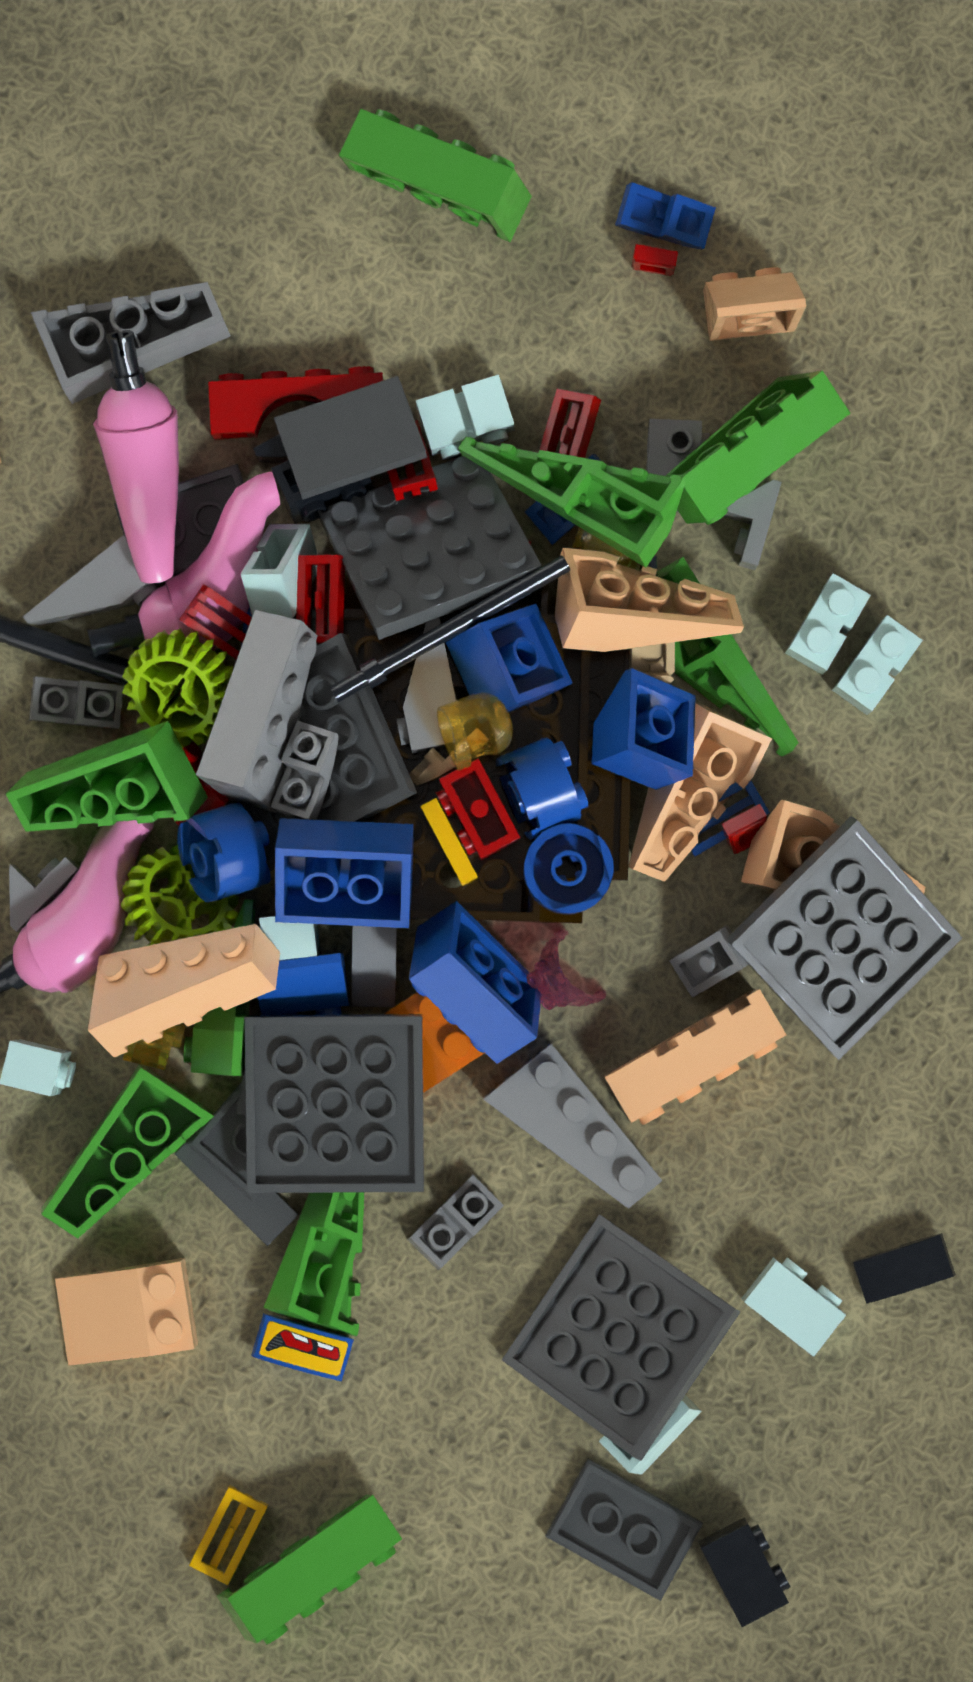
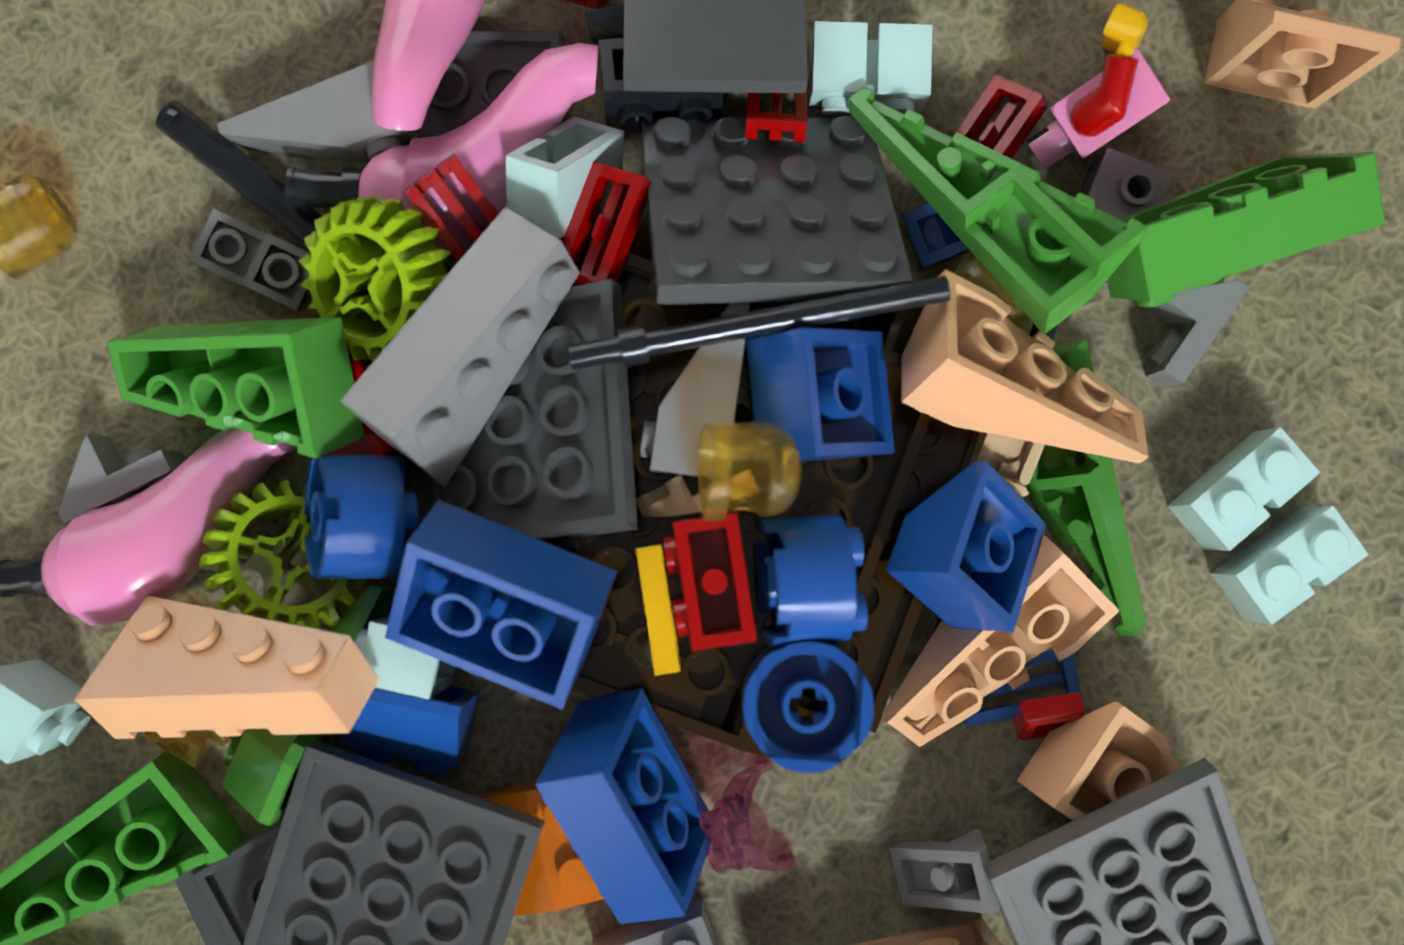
camera: 20 degrees right, 0 degrees up
(308, 771) = (508, 440): light grey slope -> none
(373, 966) = (506, 733): light grey slope -> none
(642, 383) = (1109, 101): none -> torso

